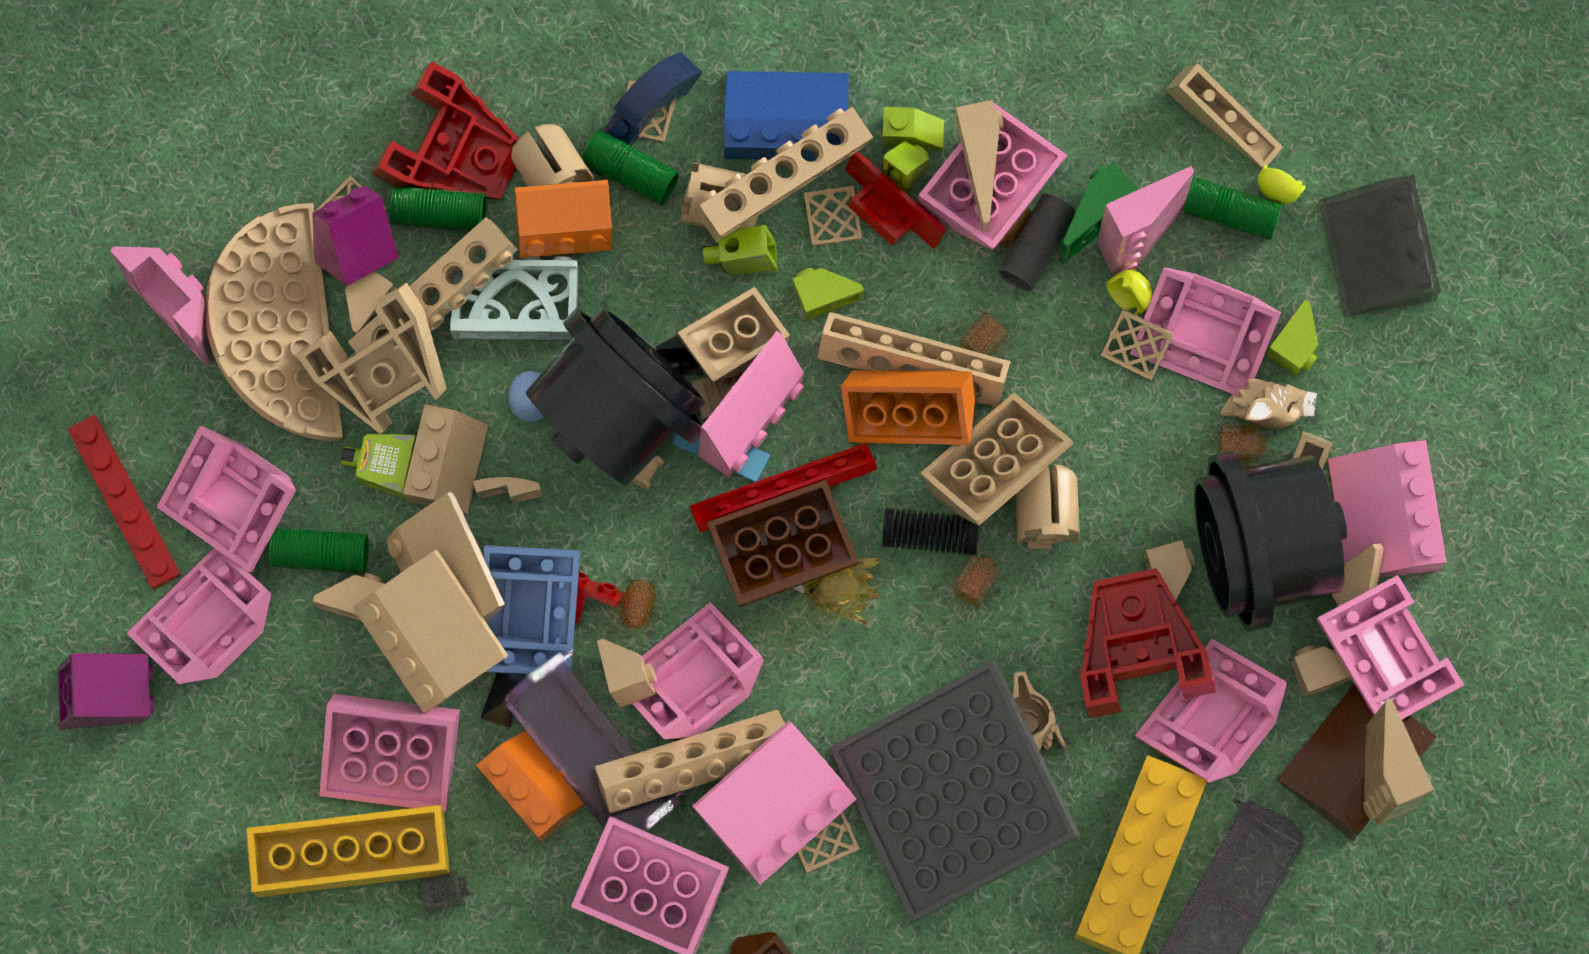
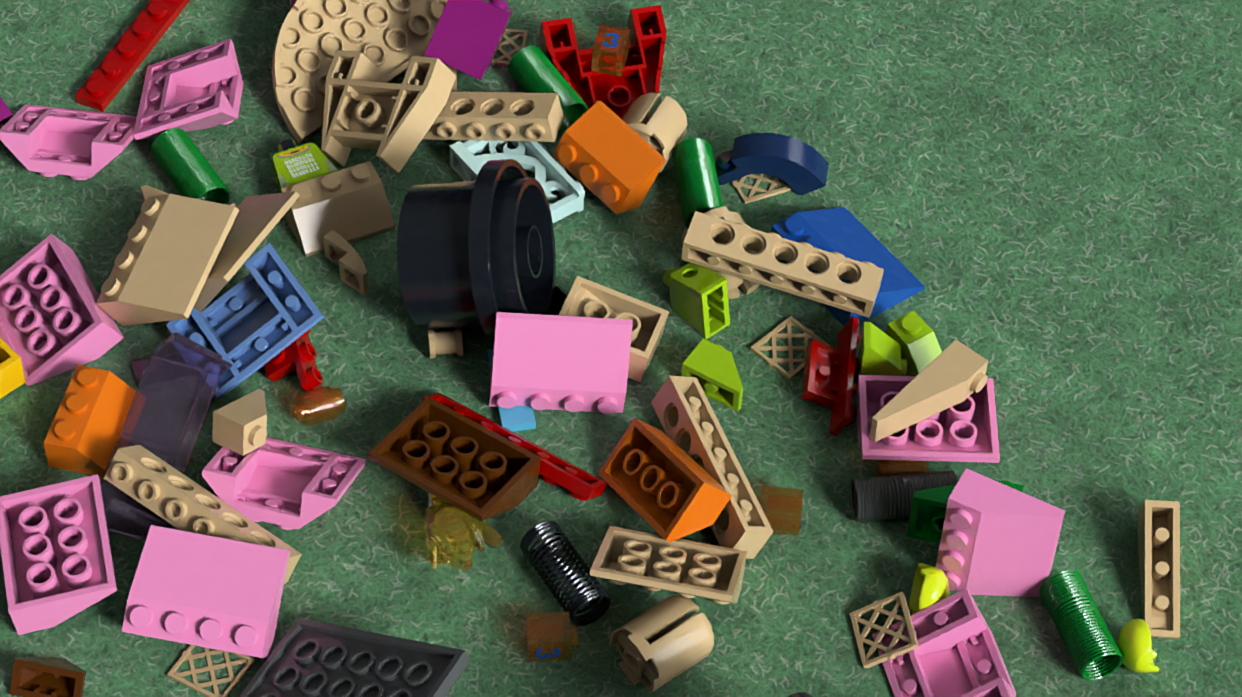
camera: 50 degrees right, 25 degrees down
(447, 133) = (610, 50): none -> clear orange brick

